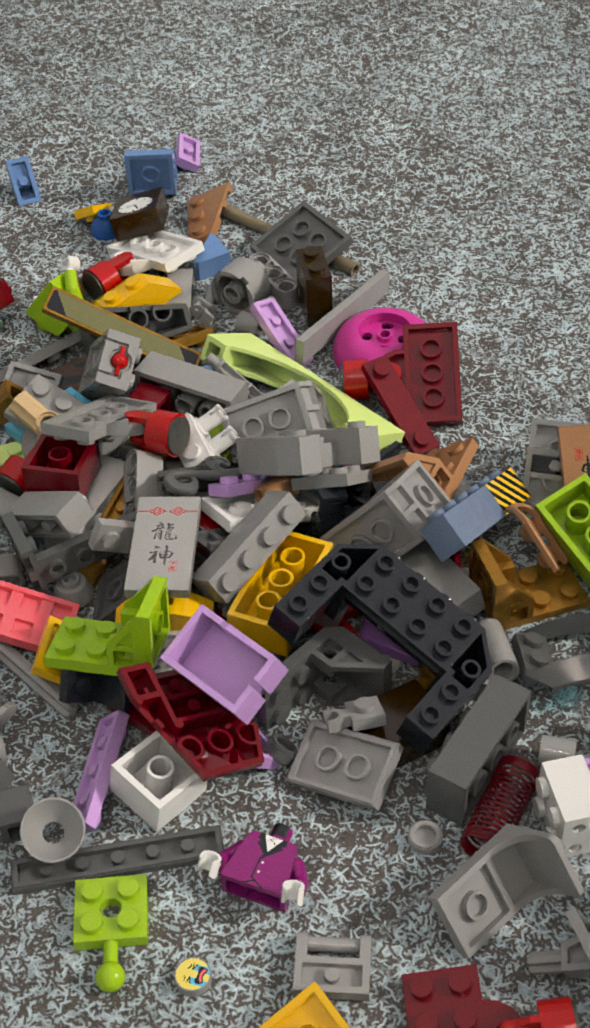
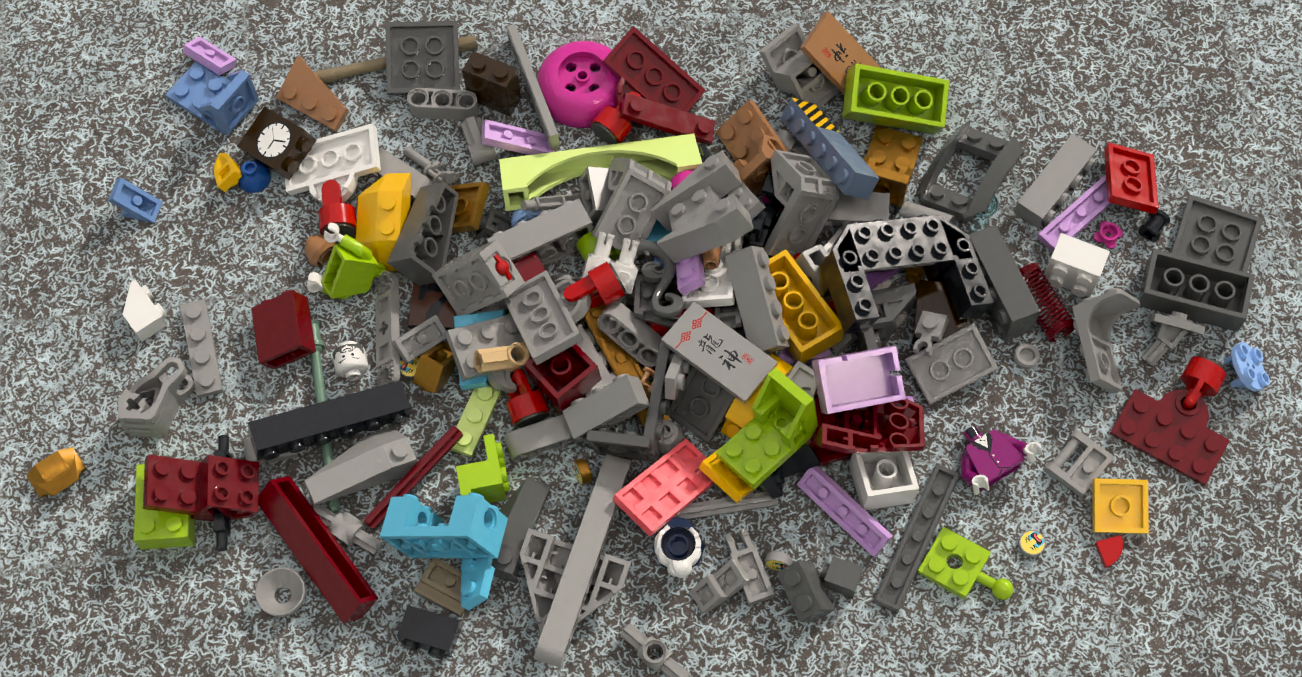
camera: 55 degrees left, 20 degrees up
(44, 813) = (893, 557): light grey piece -> none
(97, 320) = (447, 247): olive tile -> none
(212, 259) = (379, 118): medium blue slope -> none
(241, 284) = (439, 130): light grey brick -> none
(281, 749) = (912, 391): dark grey tile -> none
(531, 532) = (858, 128): medium nougat piece -> none
(555, 748) = (1033, 245): light grey beam -> none

